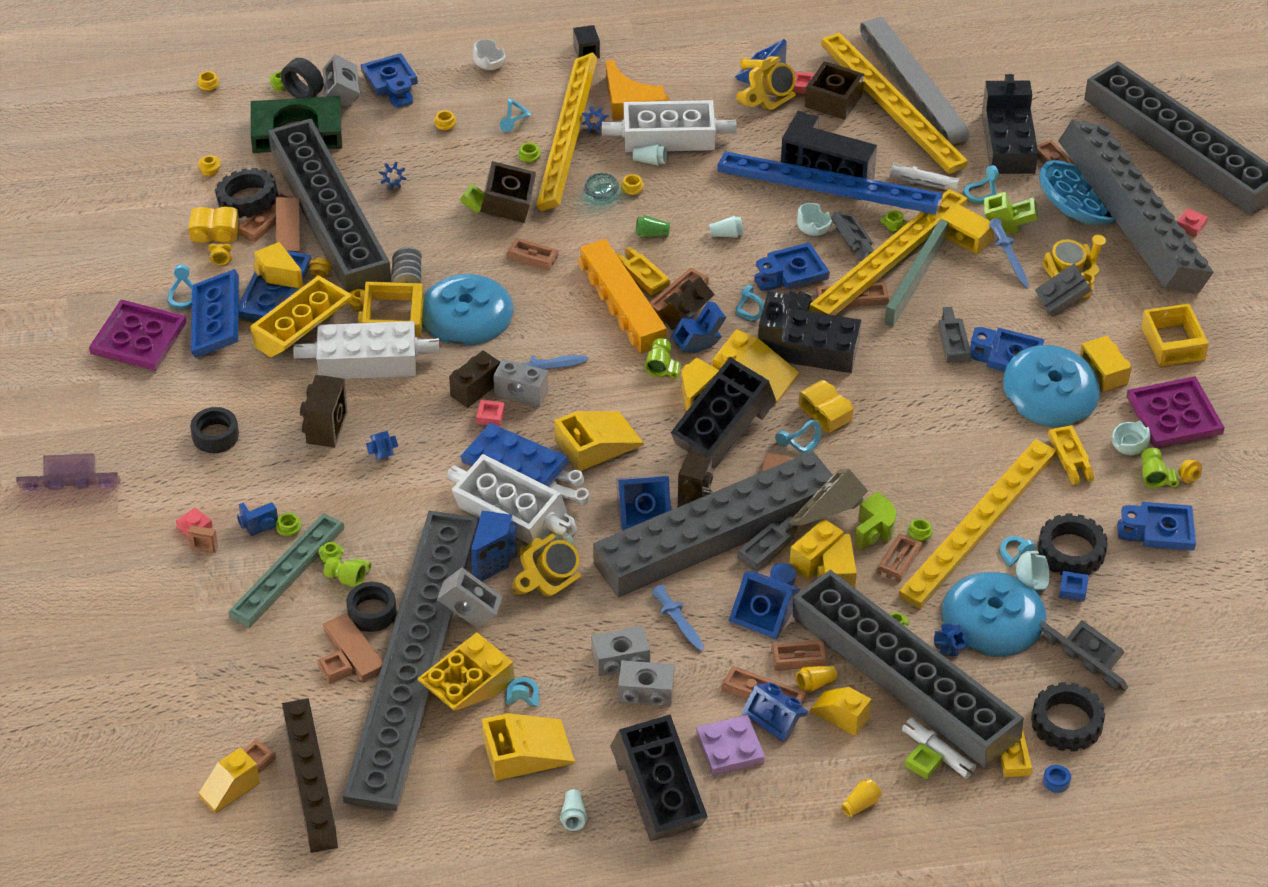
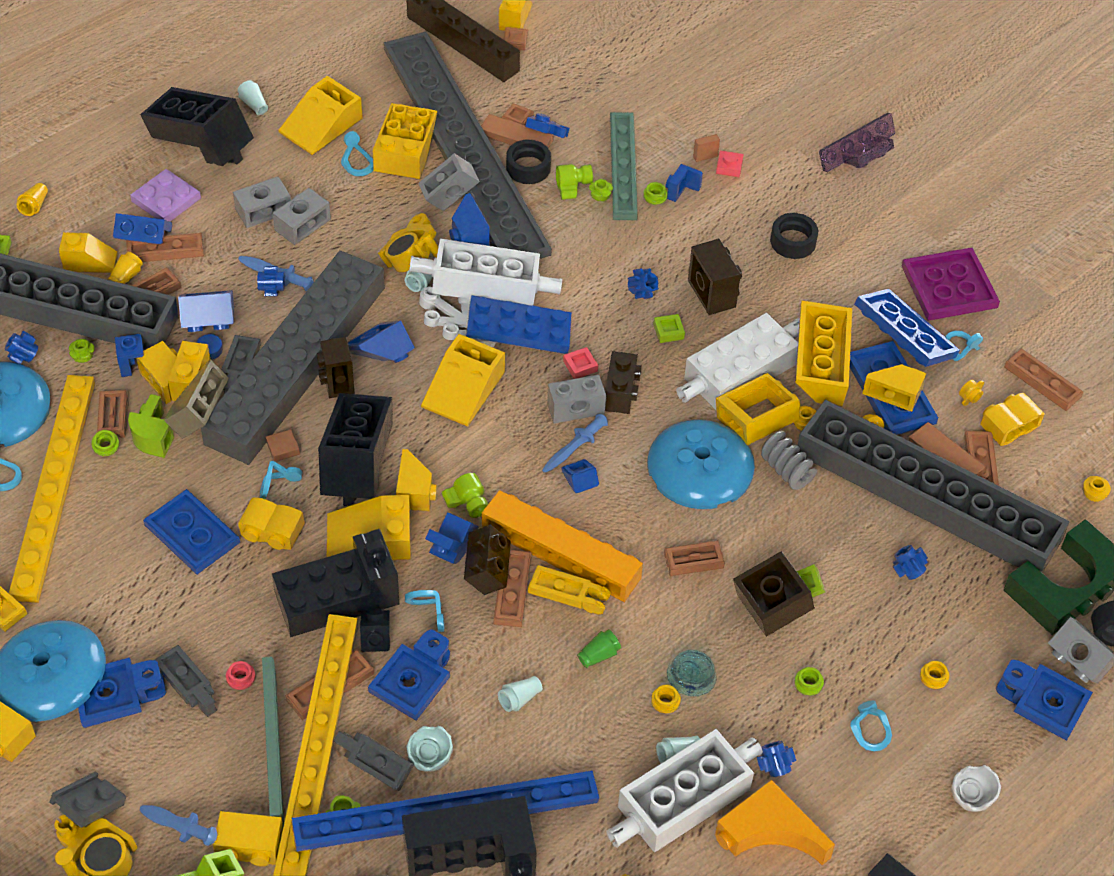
camera: 145 degrees right, 5 degrees up
(153, 245) = (1043, 379): none -> nougat tile
(247, 179) = (1029, 447): black tyre -> none
(324, 635) = (543, 124): none -> blue plate
(394, 406) = (669, 328): none -> lime plate
(563, 342) = (581, 475): none -> blue slope
(566, 133) = (798, 735): yellow plate -> none
(693, 598) = (271, 281): none -> blue gear
(861, 579) = (127, 350): none -> blue bracket
(888, 438) = (191, 531): none -> blue tile
(913, 324) = (240, 668): none -> coral plate

